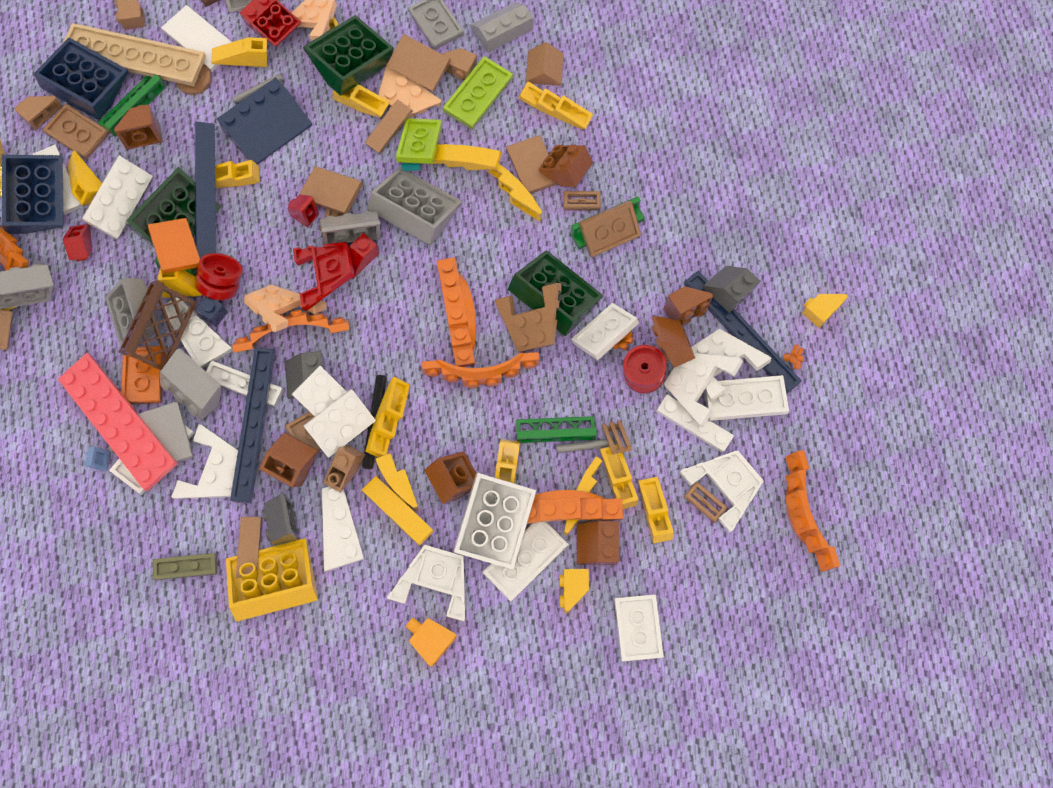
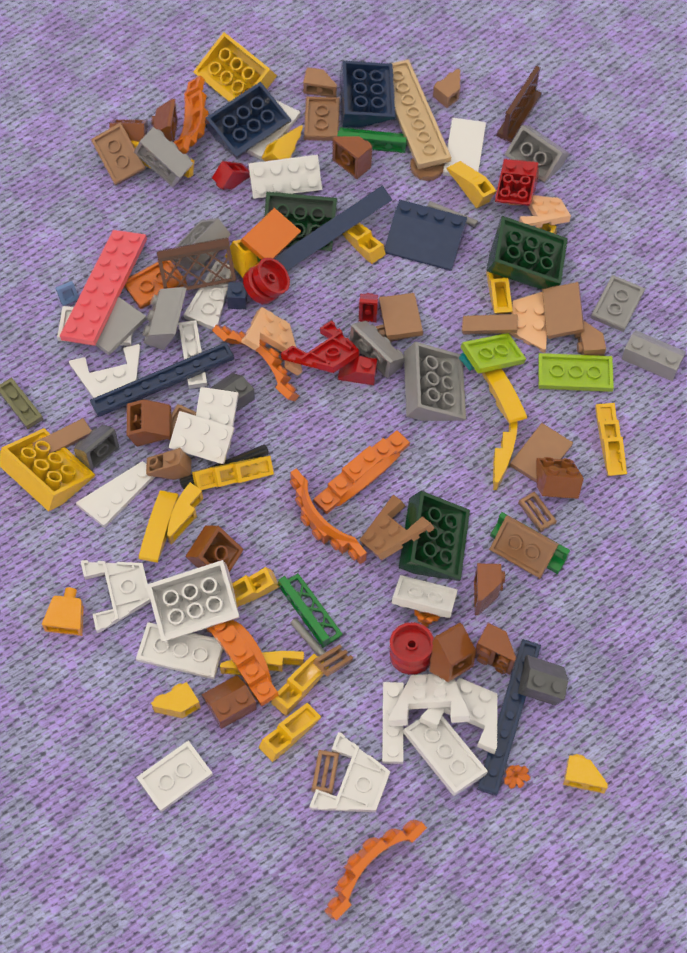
camera: 60 degrees right, 10 degrees down
(544, 65) = (643, 410): medium nougat slope -> none
(628, 278) = (487, 584): none -> dark orange slope

